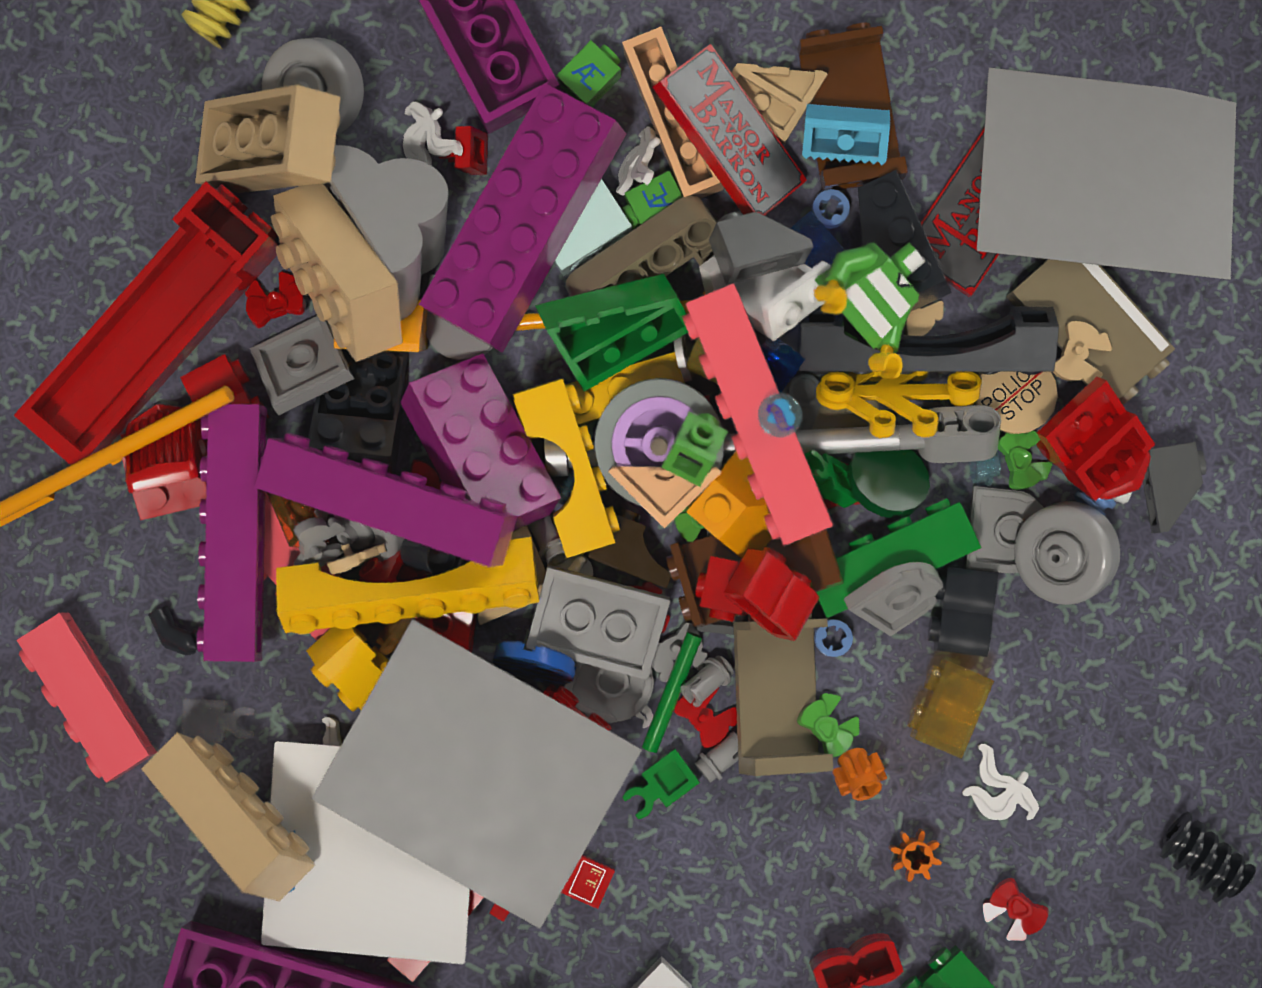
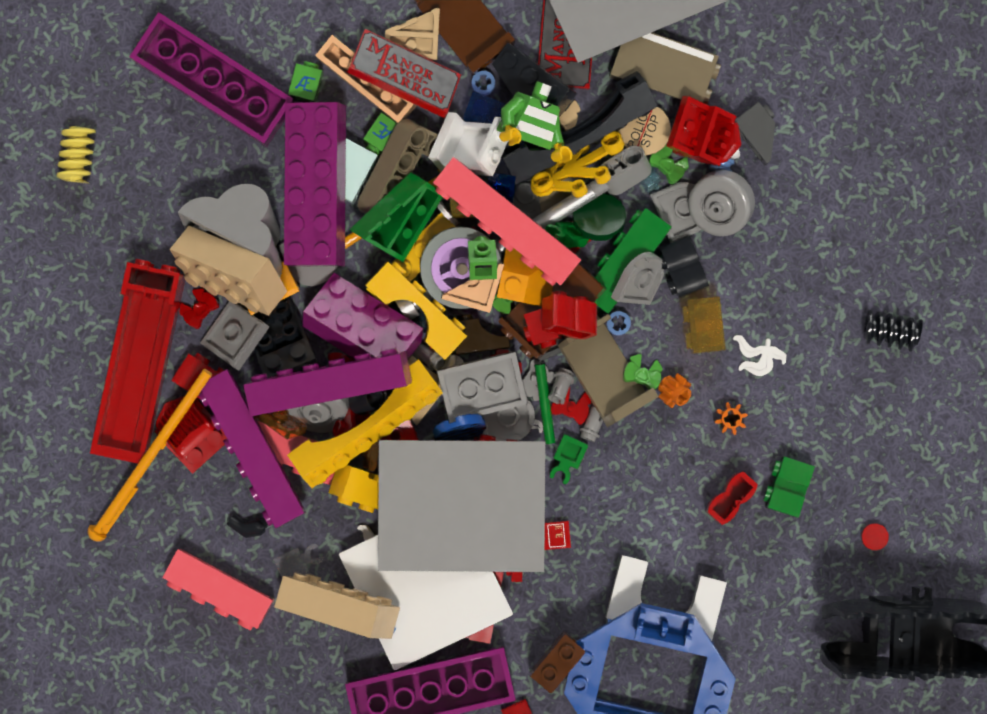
camera: 30 degrees left, 0 degrees up
(268, 139) = (148, 220): tan brick -> none
(312, 539) = (299, 431): light grey piece -> none
(318, 66) = (154, 177): light grey wheel -> none
(352, 560) = (325, 428): tan piece -> none
(427, 129) = (231, 163): white piece -> none
(474, 155) = (260, 163): red tile -> none
(636, 162) = (359, 116): white piece -> none
(756, 246) = (453, 129): dark grey slope -> none
(779, 415) = (518, 215): clear light blue tile -> none
(846, 133) = (468, 37): medium azure brick -> none
(1027, 915) = (796, 414): red piece -> none
(1080, 338) = (665, 96): tan piece -> none

